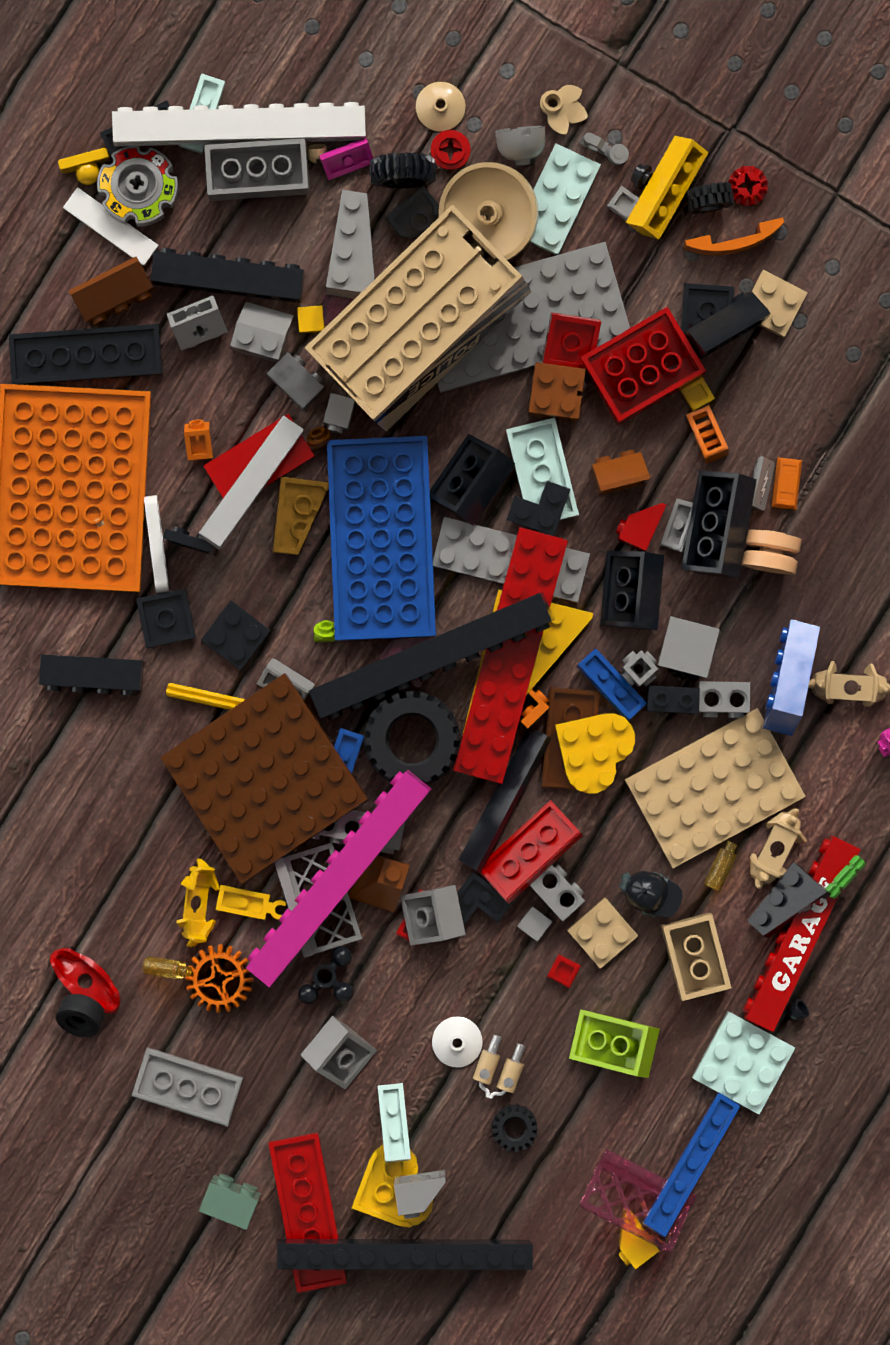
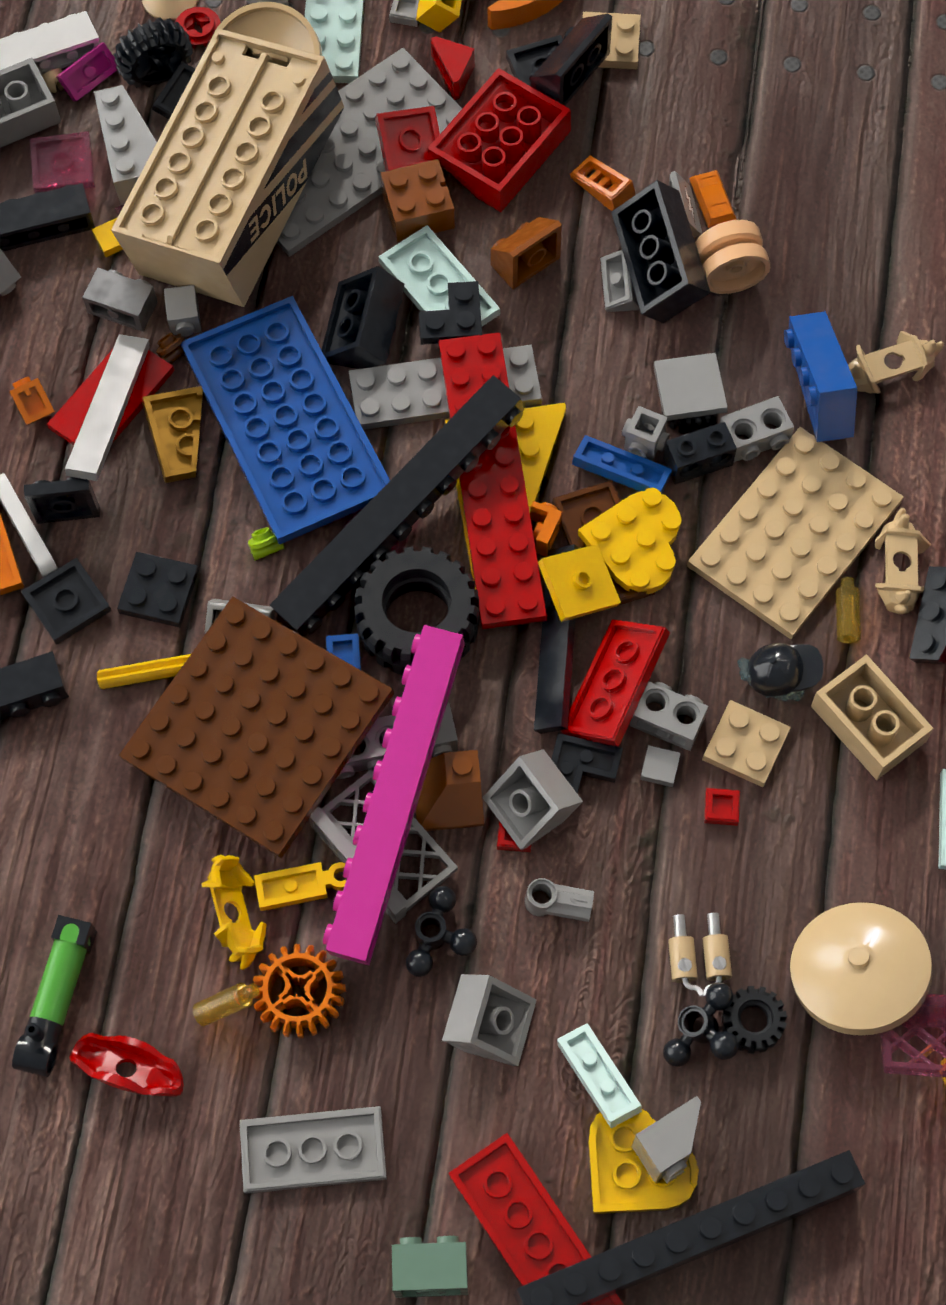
camera: 25 degrees left, 20 degrees down
(54, 911) = (38, 1047): none -> piece
(80, 1015) = (132, 1126): black tyre -> none
(261, 332) = (60, 270): light grey slope -> none
(296, 236) = (62, 161): none -> clear pink plate
(423, 993) = (563, 902): none -> light grey piece
(457, 1028) = (627, 963): white dish -> none
(484, 1139) = (722, 1044): none -> black piece
(536, 768) = (579, 582): none -> yellow plate
(601, 1127) = (861, 968): none -> tan dish
(614, 1043) = (826, 862): lime slope -> none
(632, 590) = (597, 361): black slope -> none
(638, 277) = (454, 63): none -> red slope
(640, 527) = (574, 295): red slope -> none
(697, 394) = (572, 151): yellow tile -> none

